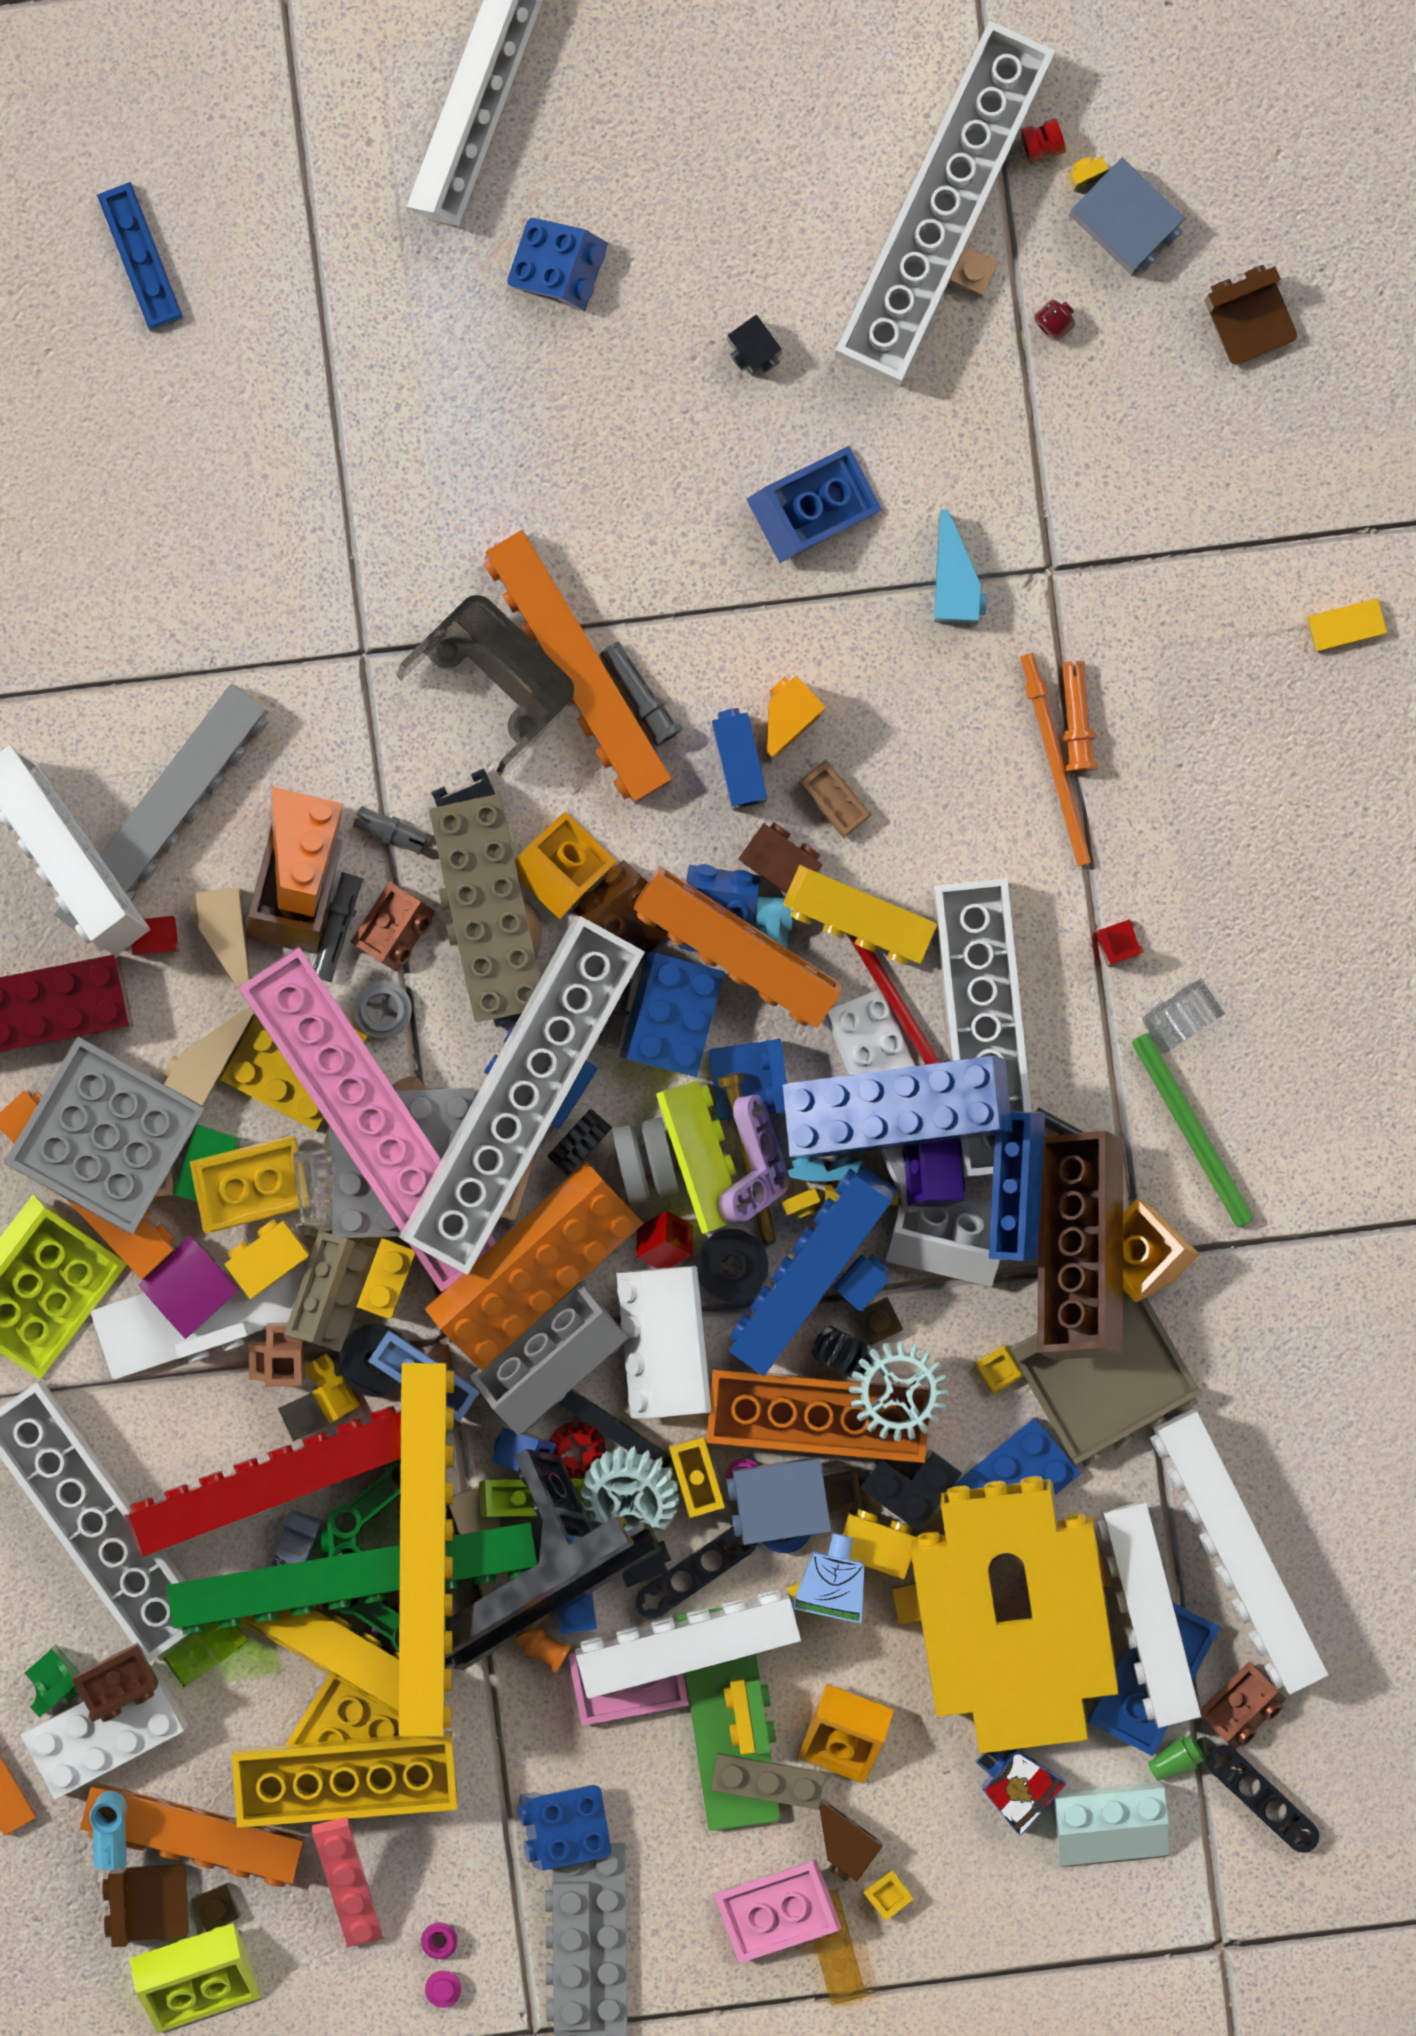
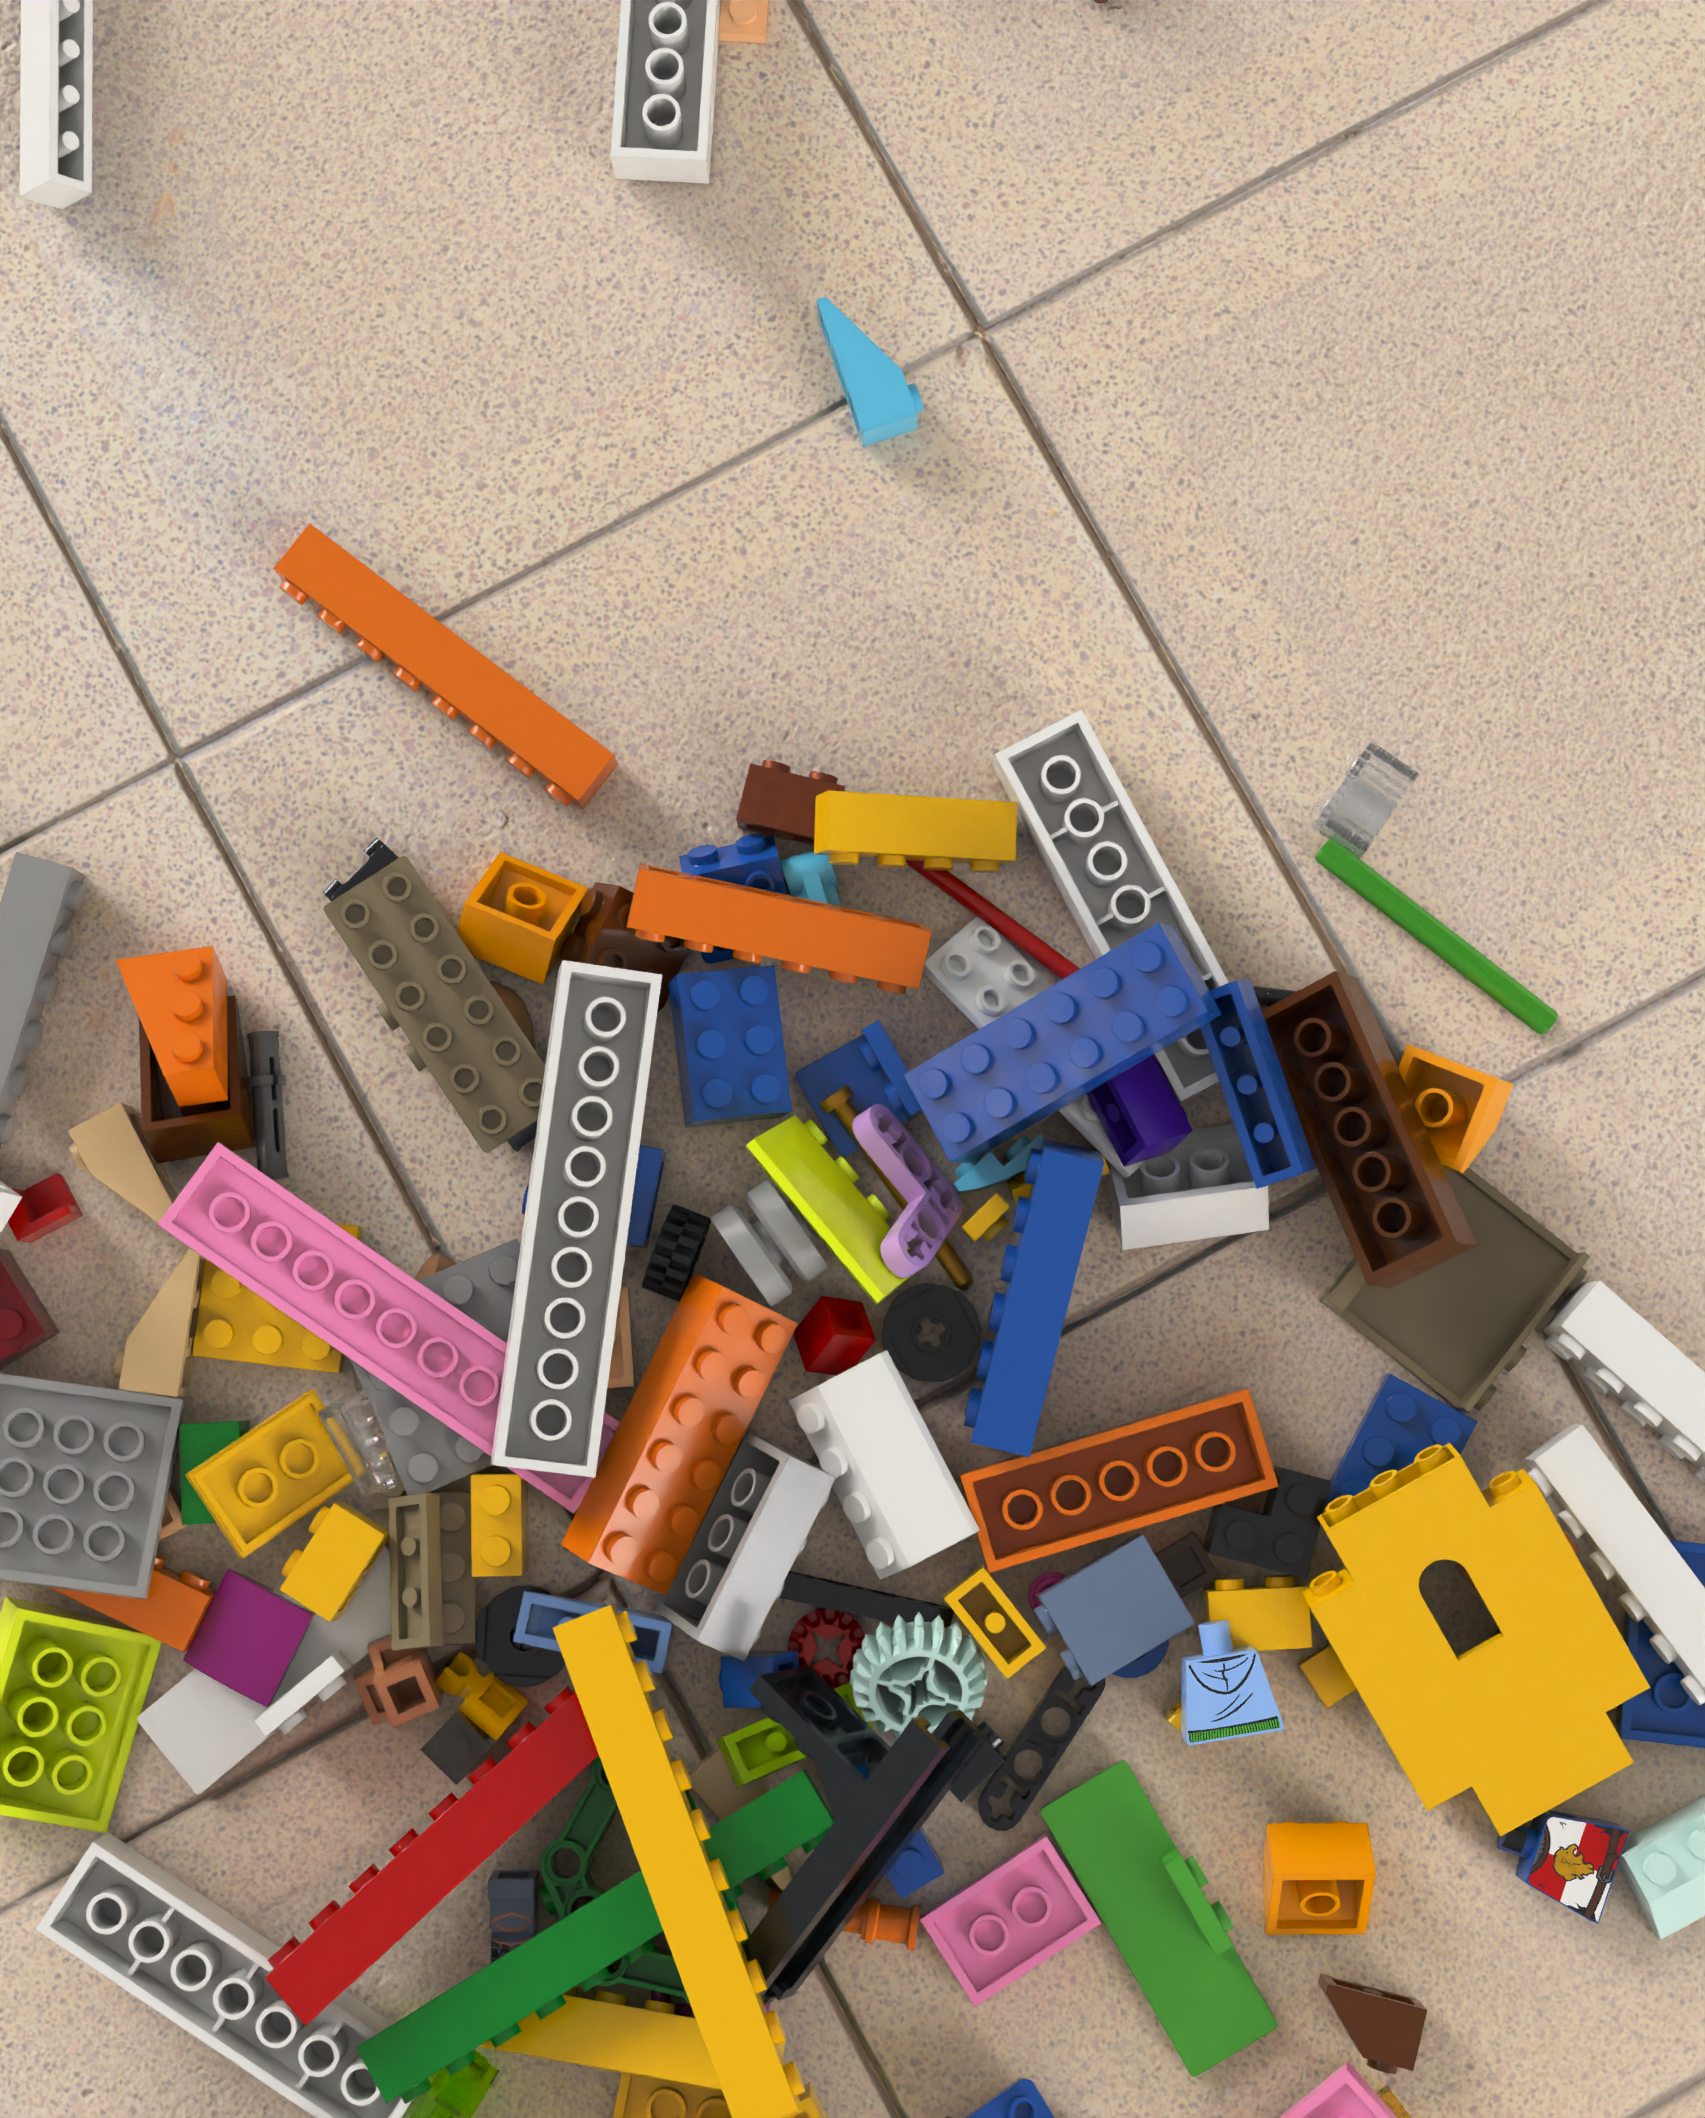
camera: 20 degrees left, 5 degrees down
(376, 993) = (350, 1169): light grey gear -> none
(390, 830) = (290, 959): dark grey pin -> none
(393, 927) = (339, 1077): copper bracket -> none
(509, 659) = (348, 684): clear smoke windscreen -> none
(558, 262) = (234, 191): blue bracket -> none
(612, 1031) = (661, 1083): clear smoke axle -> none
(649, 707) = (555, 682): dark grey pin -> none
(687, 1644) = (1068, 1847): white brick -> none
(737, 1699) = (1184, 1931): yellow plate -> none
(739, 759) = (689, 697): blue brick -> none
(754, 347) = (511, 200): black brick -> none
(767, 1781) = (1243, 1982): dark tan plate -> none
(790, 714) = (732, 616): light orange slope -> none
(813, 504) = (657, 360): blue slope -> none
(834, 798) = (827, 704): medium nougat plate -> none
(841, 1351) = (1116, 1387): black gear -> none
(862, 1281) = (1104, 1286): blue brick -> none
(879, 1321) = (1143, 1330): dark brown plate -> none
(881, 1365) = (1195, 1426): light aqua gear -> none
(888, 1894) = (1457, 2068): yellow plate -> none
(998, 1369) = (1318, 1331): yellow tile -> none
(1037, 690) = (1023, 479): orange bar -> none
(1055, 319) = (864, 30): dark red piece -> none
(1079, 736) = (1096, 509): orange pin -> none
(1118, 942) = (1248, 742): red panel -> none
(1346, 625) = (1366, 254): yellow tile -> none

